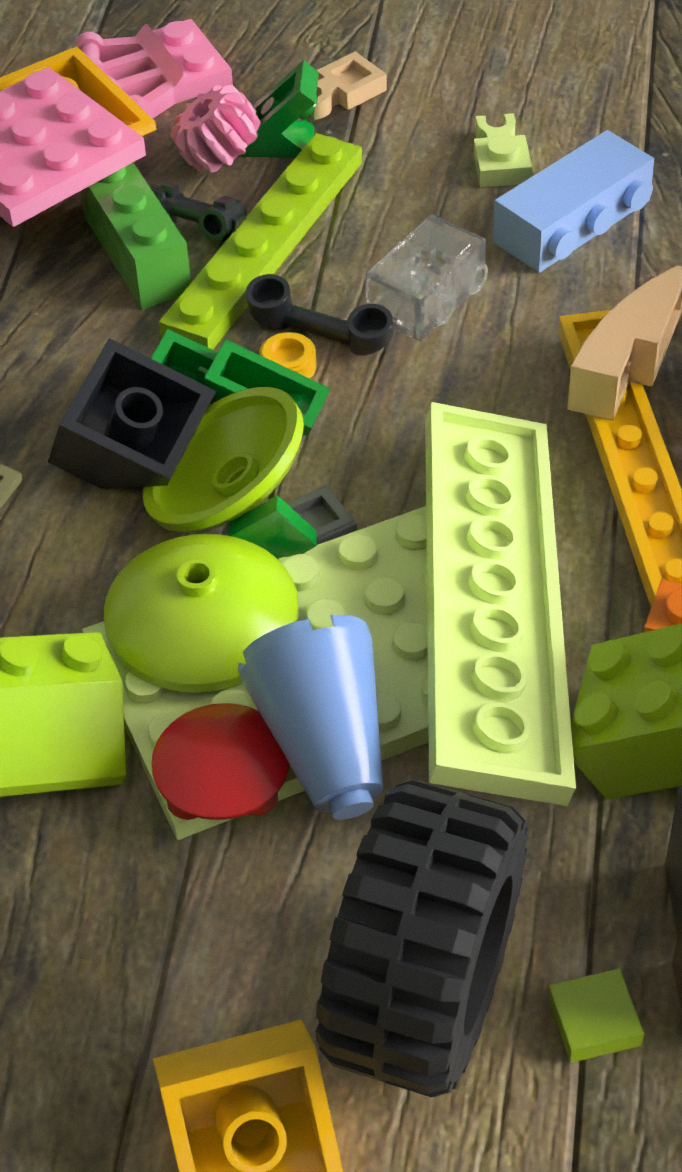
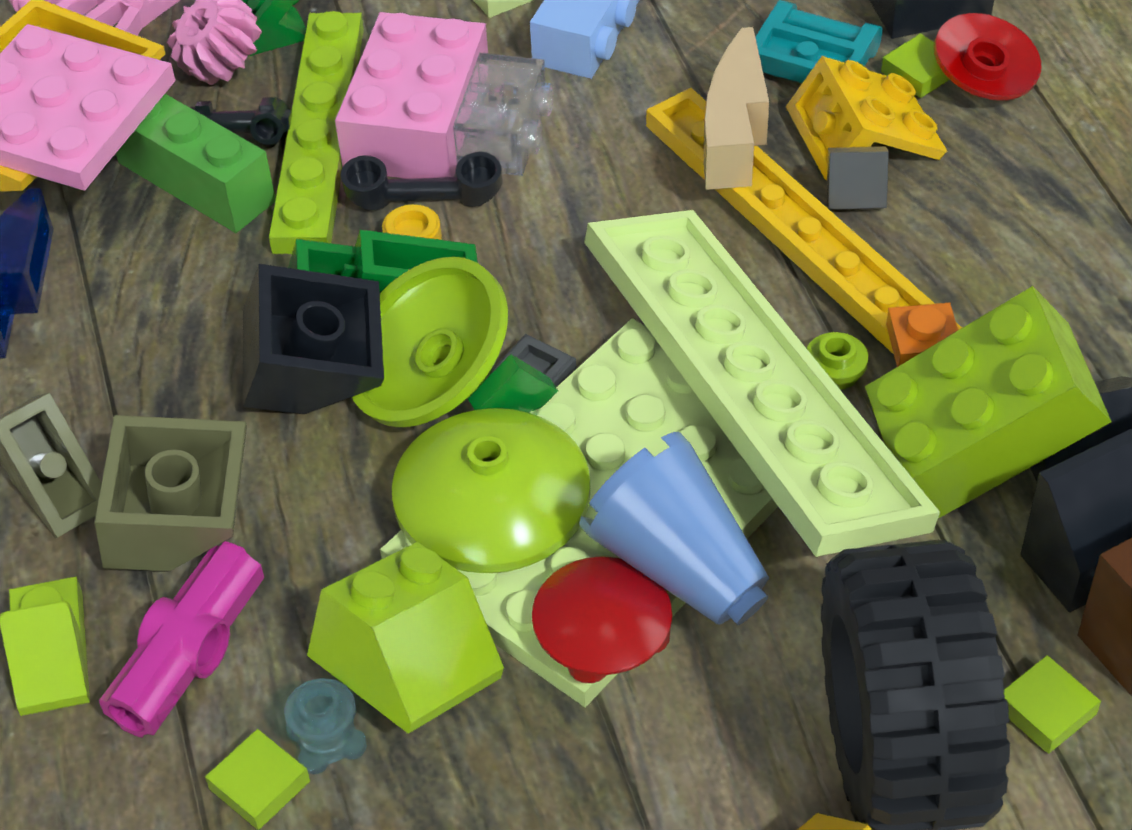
camera: 25 degrees left, 0 degrees up
(347, 228) = (410, 94): none -> bright pink brick
(597, 625) = (840, 356): none -> lime plate

